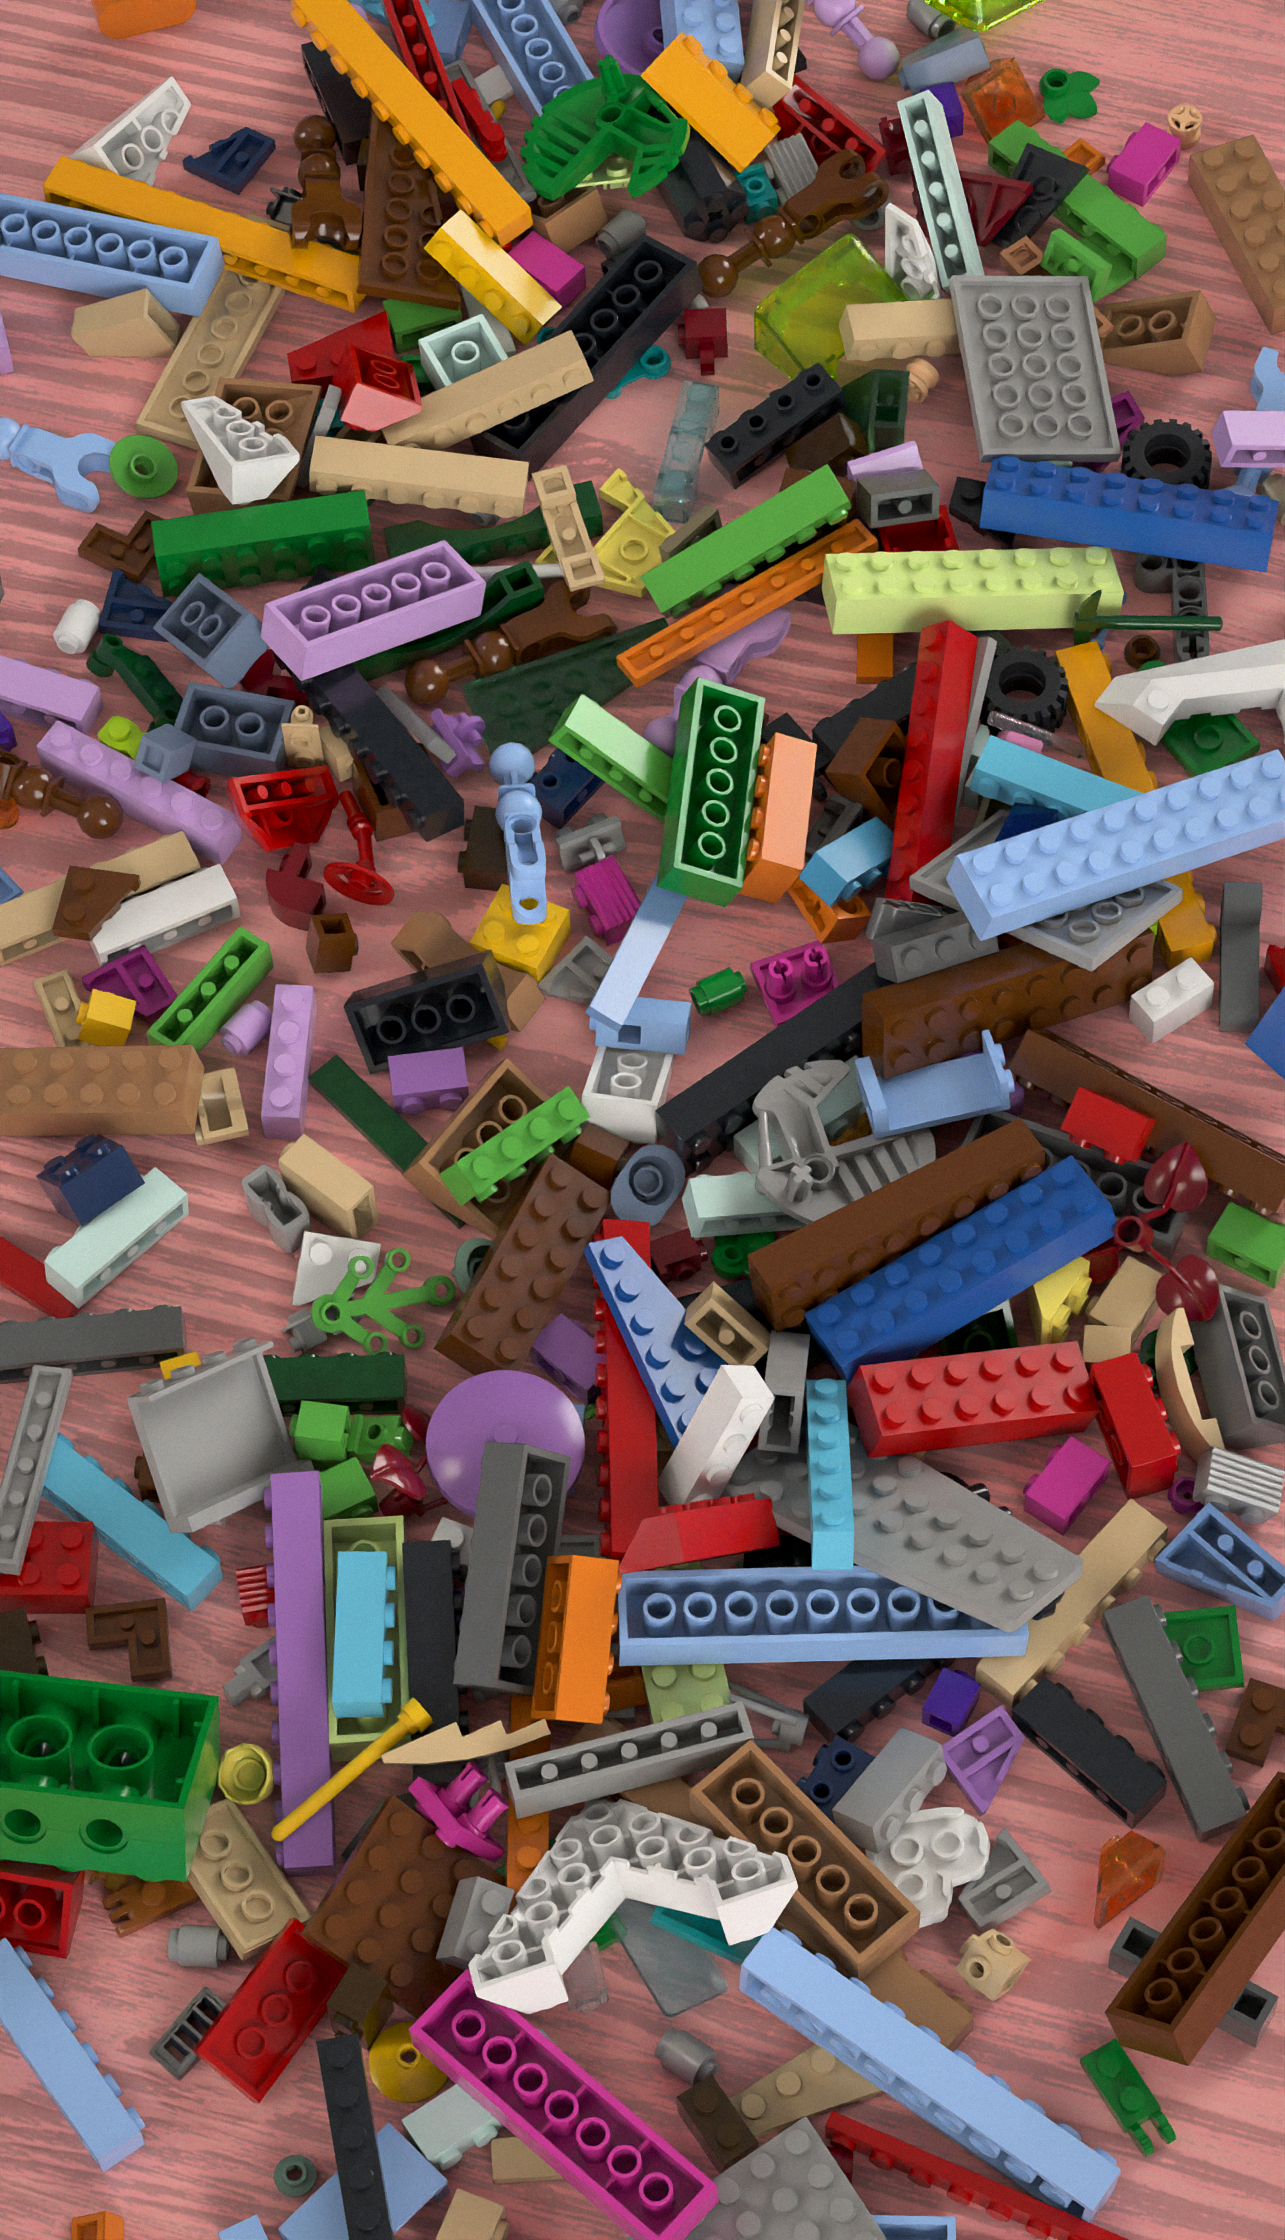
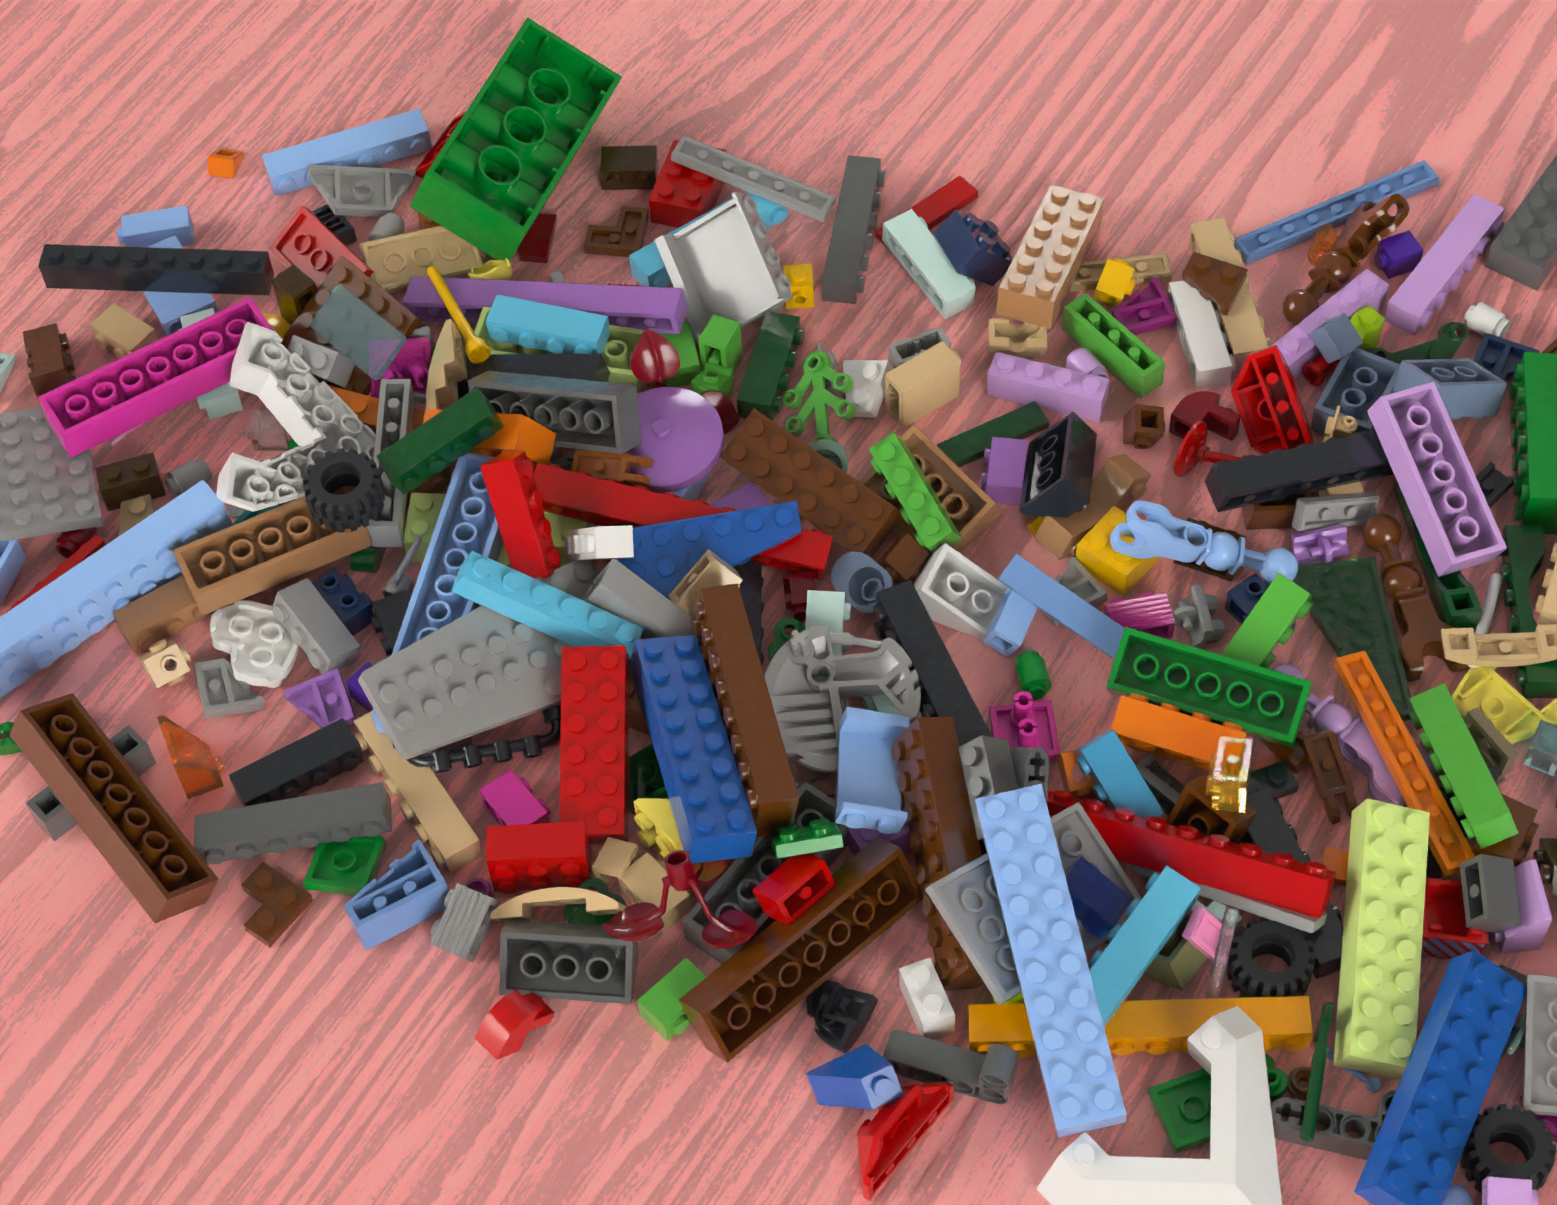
camera: 105 degrees right, 5 degrees down
(126, 2004) = (361, 189): none -> light grey wing
(435, 1863) = (358, 332): none -> clear light blue piece
(582, 1487) = (612, 465): none -> dark orange hinge
(627, 1657) = (440, 441): none -> dark green brick
(730, 1732) = (348, 509): none -> black tyre
(775, 676) = (1329, 772): none -> reddish brown hinge
(843, 726) = (1231, 774): none -> clear yellow brick
(1052, 1117) = (796, 841): none -> green plate
(1214, 1083) = (840, 1013): none -> black brick

